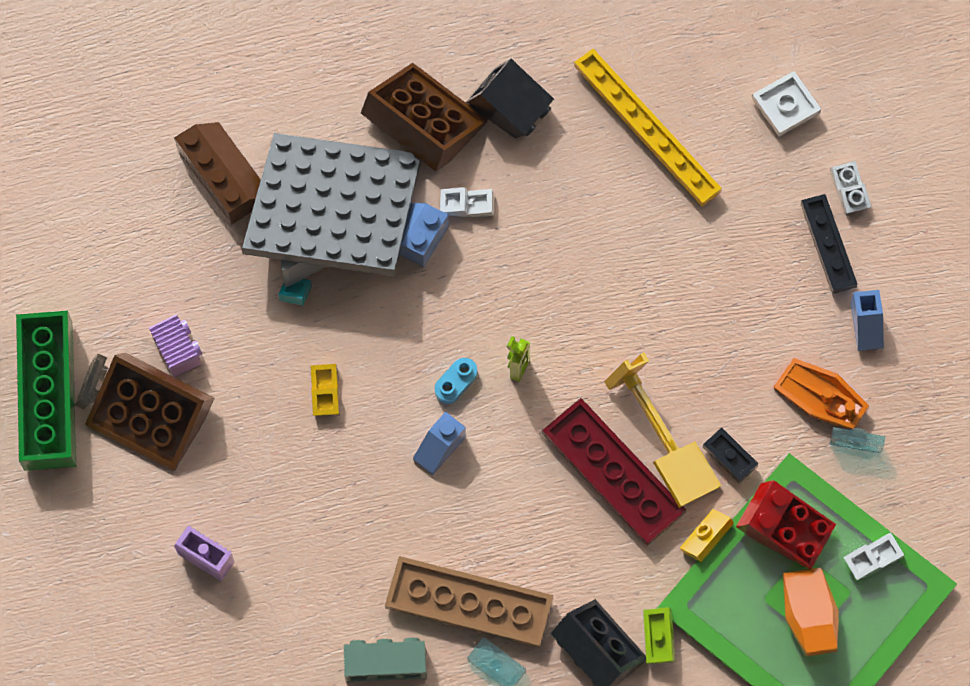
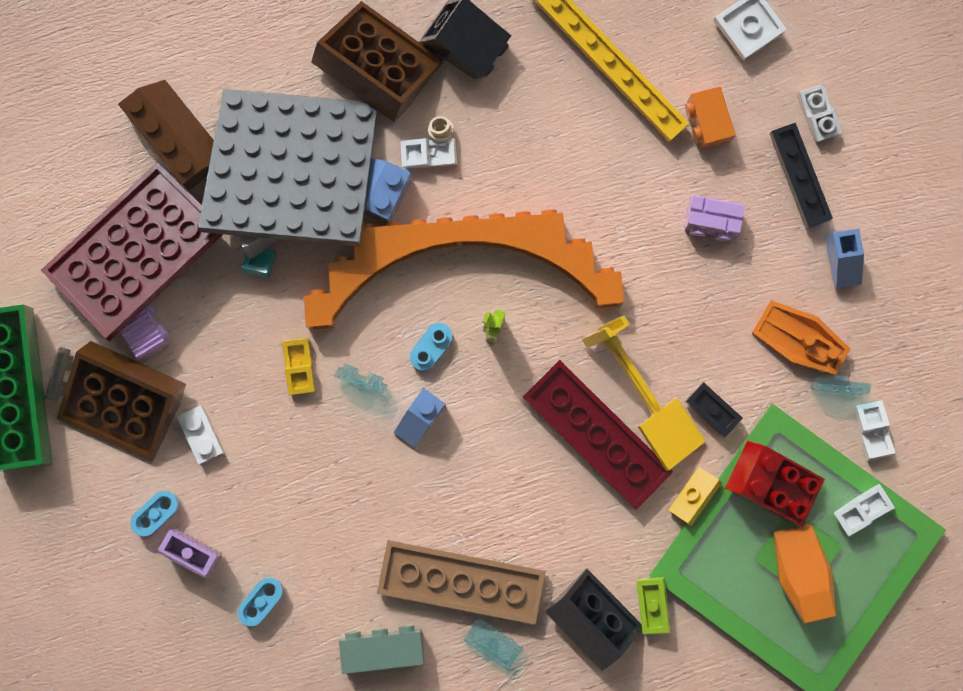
camera: 10 degrees left, 15 degrees up
(170, 515) = (155, 512): none -> medium azure plate
(174, 271) = (131, 252): none -> plate
(223, 448) = (200, 434): none -> white plate
(268, 607) = (261, 601): none -> medium azure plate
(376, 401) = (350, 375): none -> clear light blue plate
(427, 281) = (524, 233): none -> orange arch
(480, 180) = (437, 124): none -> tan plate
(740, 276) = (714, 218): none -> lavender brick
(742, 185) = (710, 118): none -> orange brick
(890, 486) = (874, 430): none -> white slope

